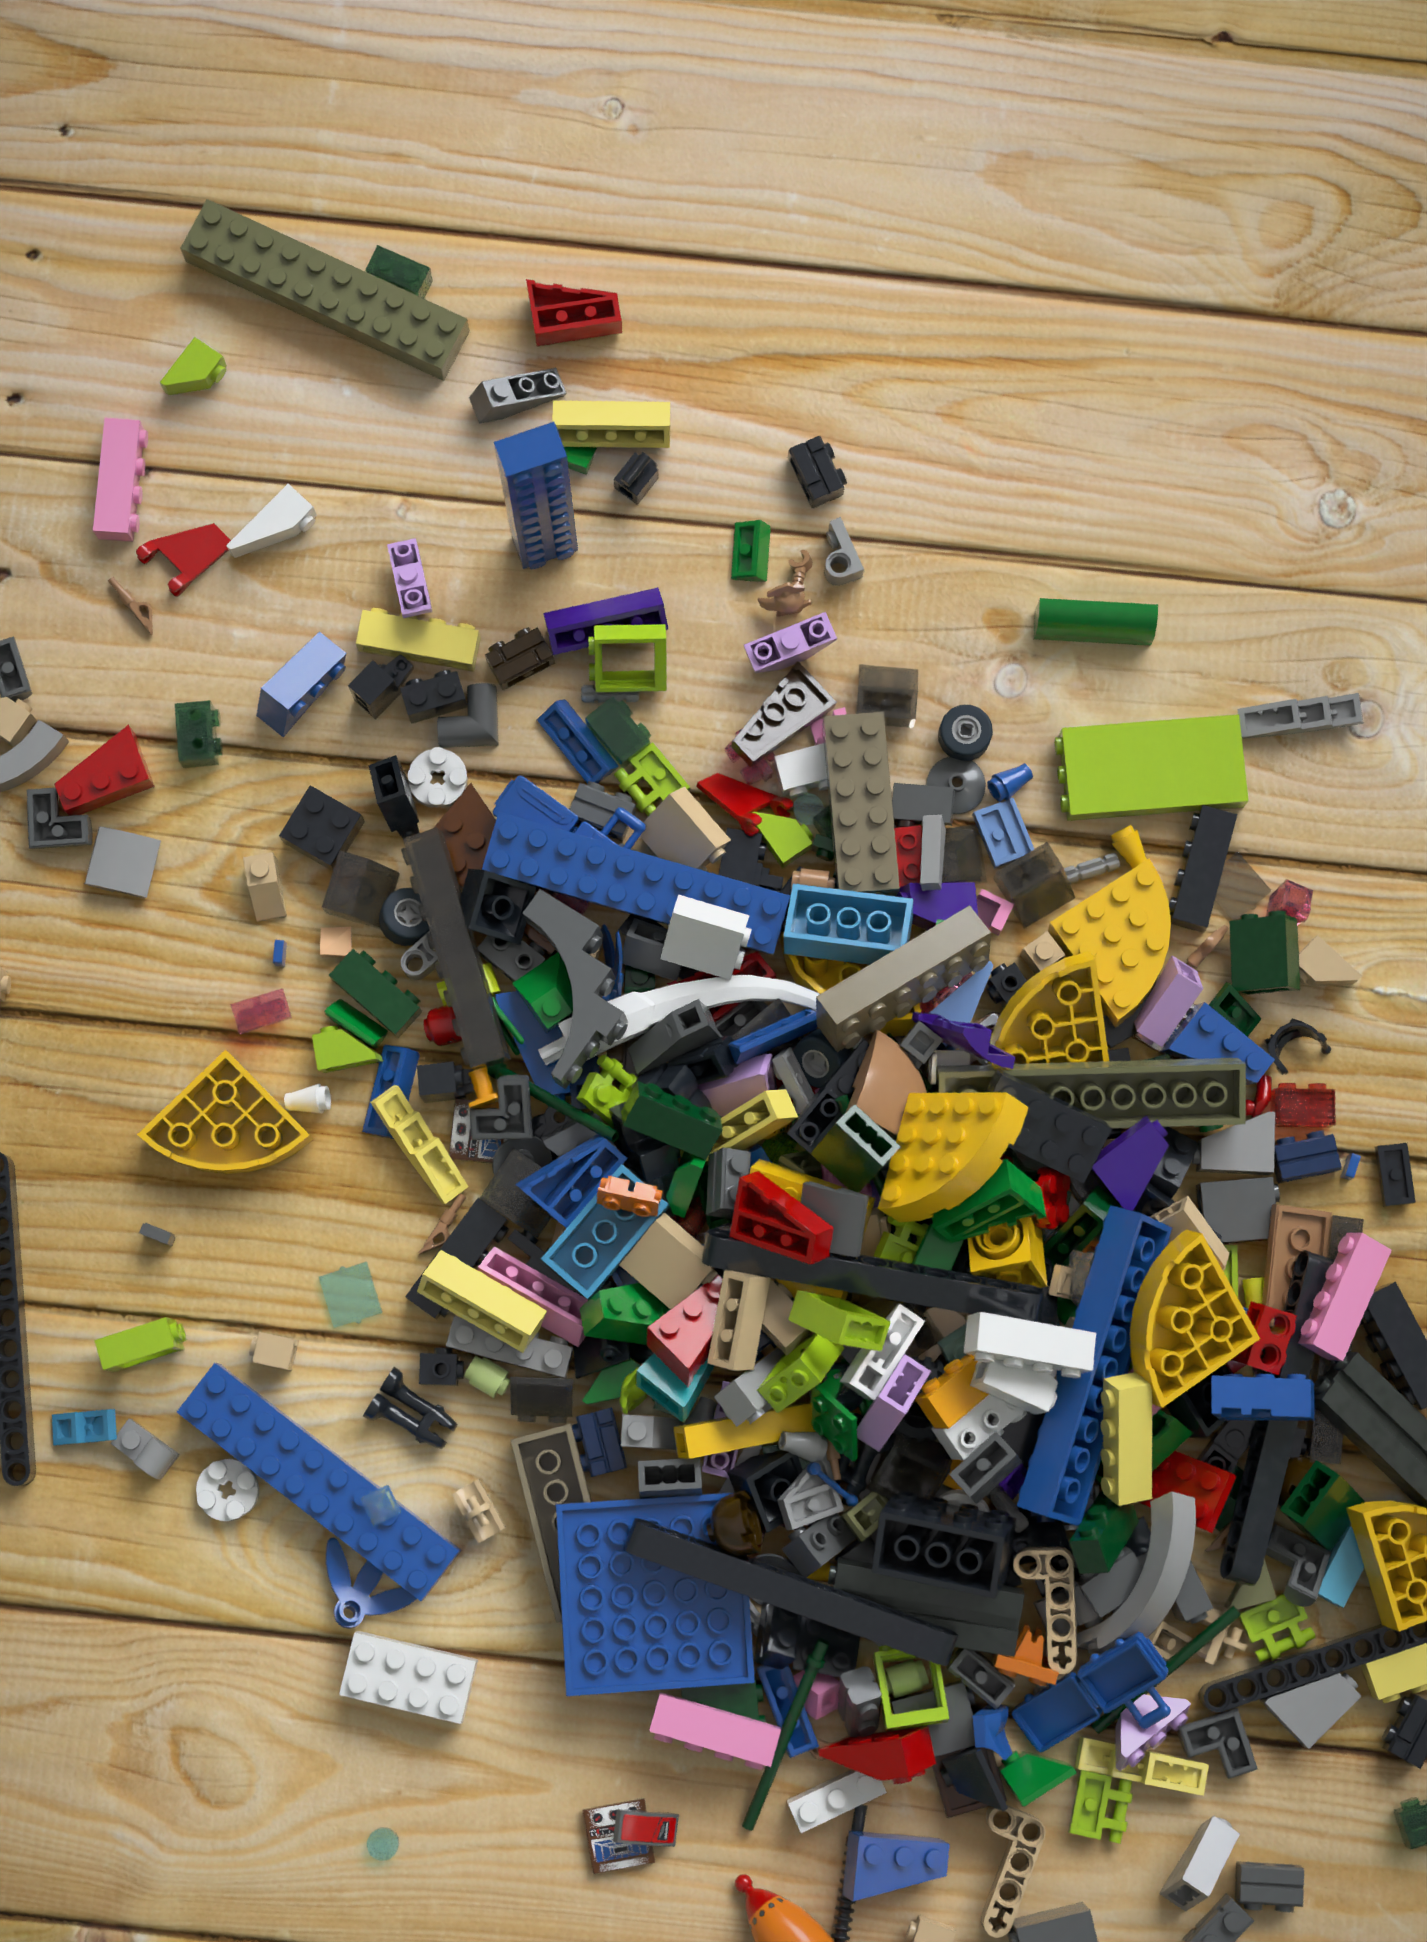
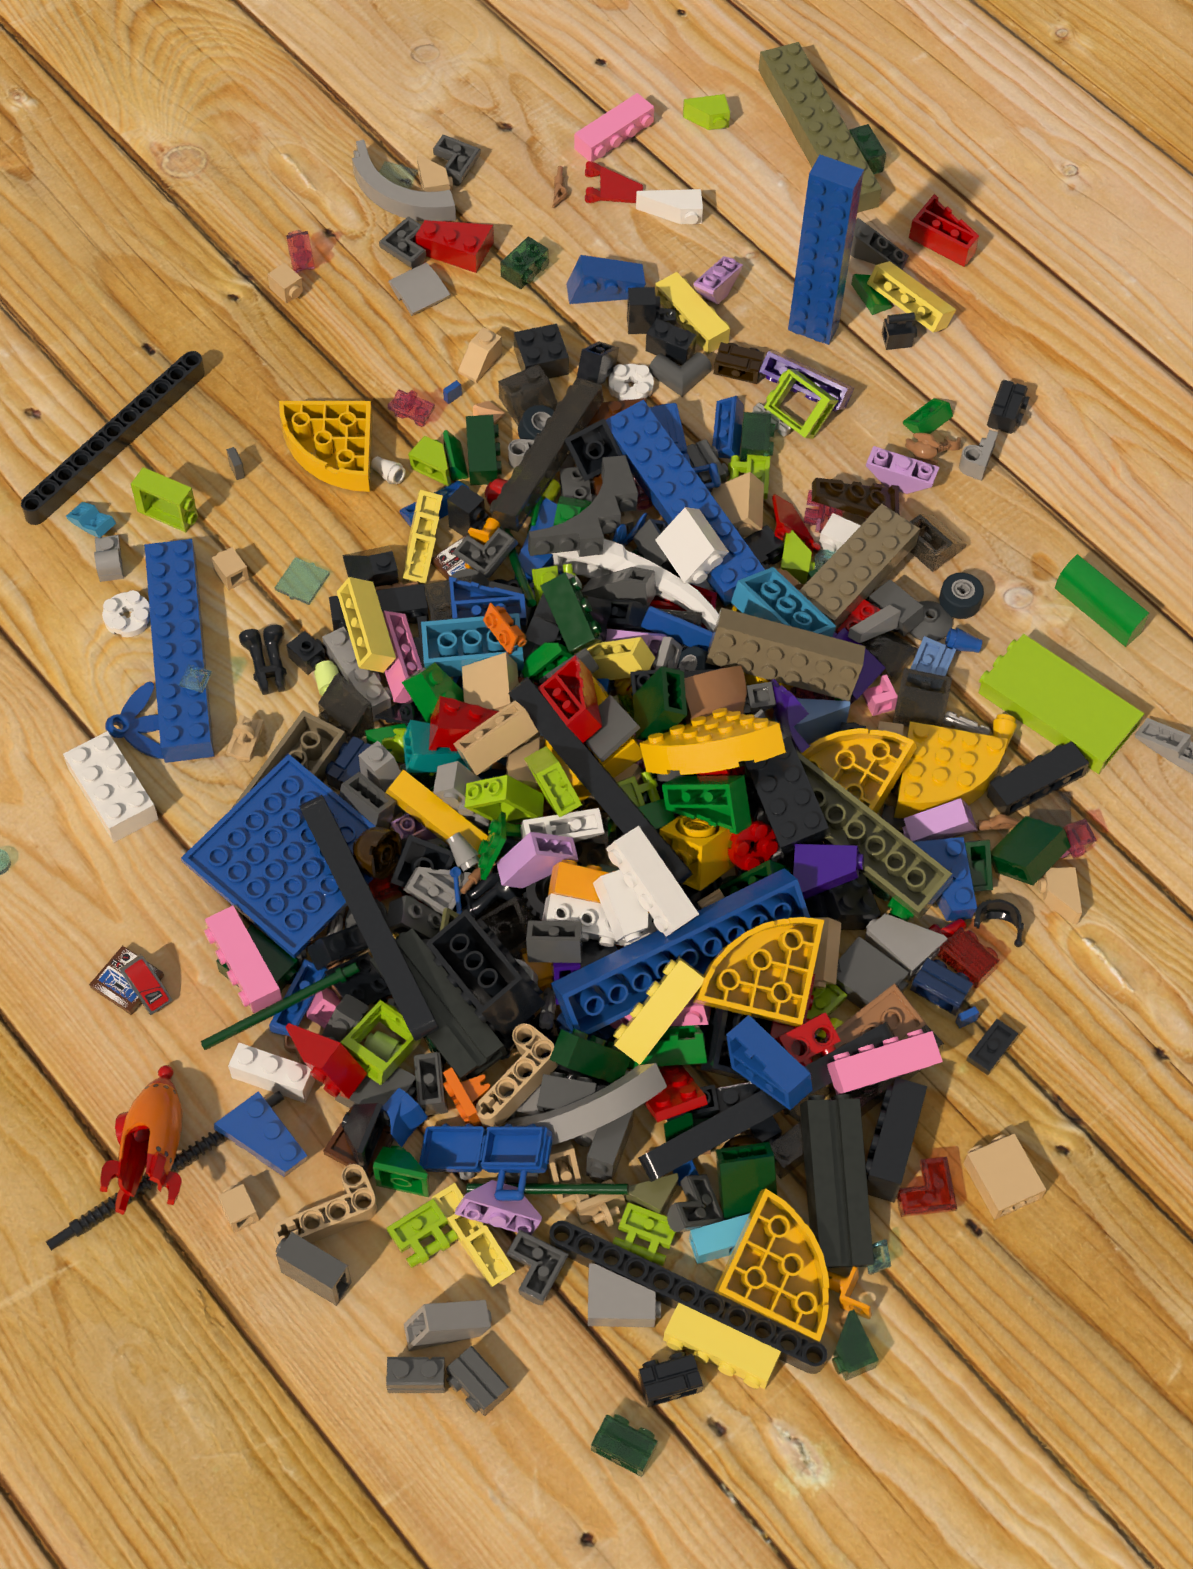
camera: 45 degrees right, 20 degrees down
(402, 1221) = (373, 565): none -> black slope

